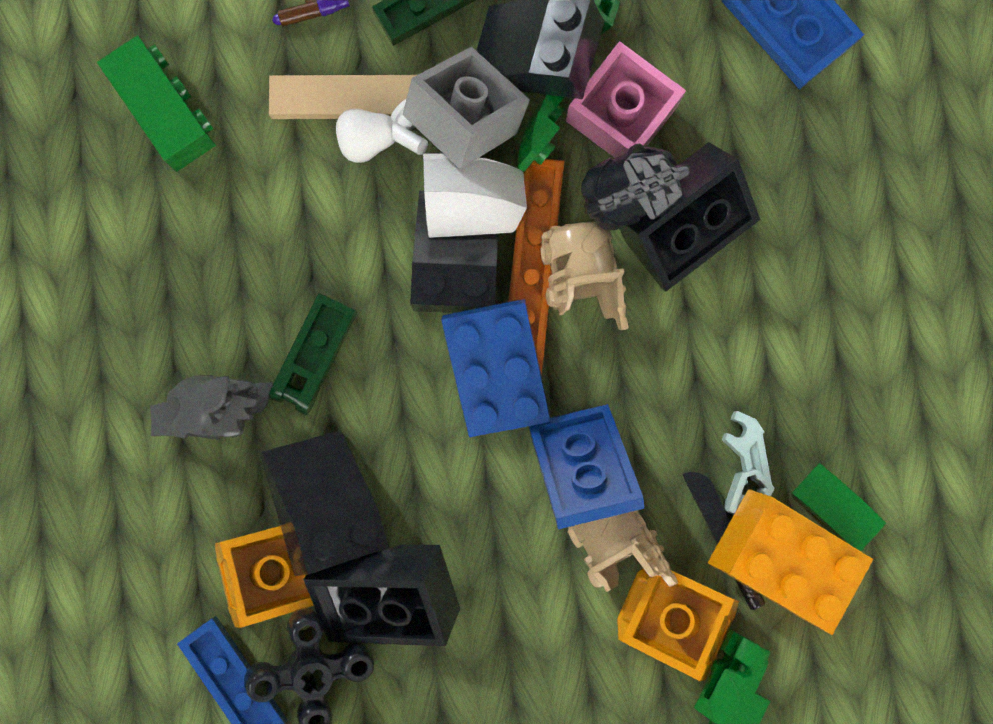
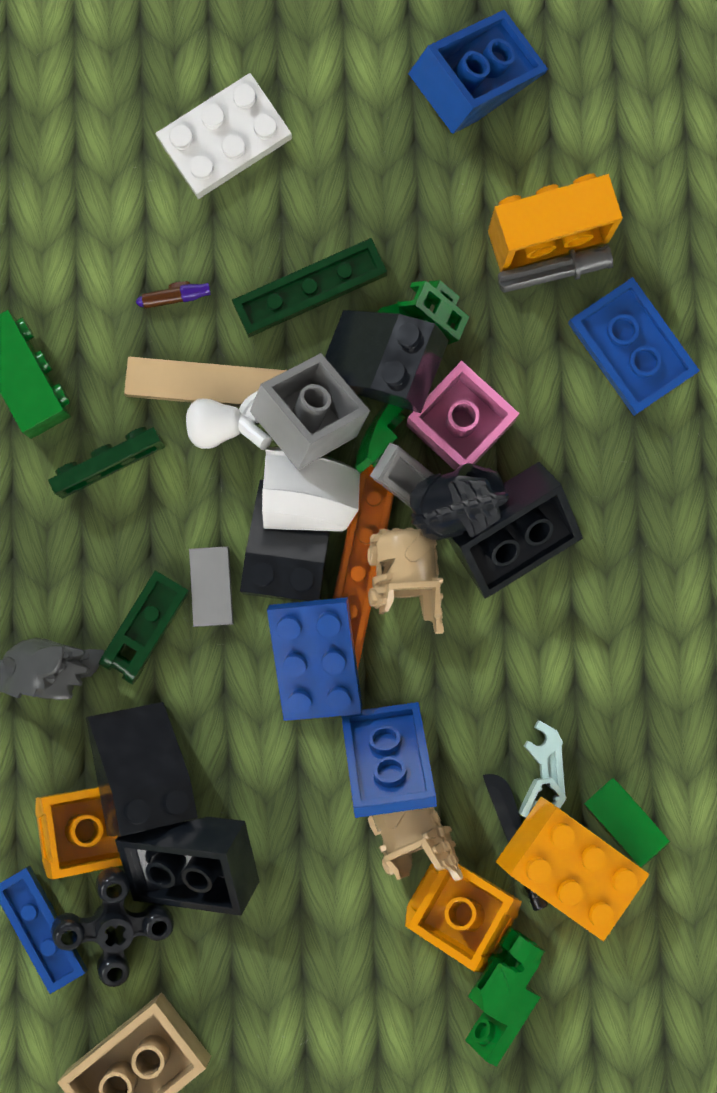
camera: 10 degrees right, 0 degrees up
(256, 186) = (105, 461): none -> dark green plate
(379, 305) = (211, 586): none -> light grey tile
(565, 166) = (399, 472): none -> light grey tile

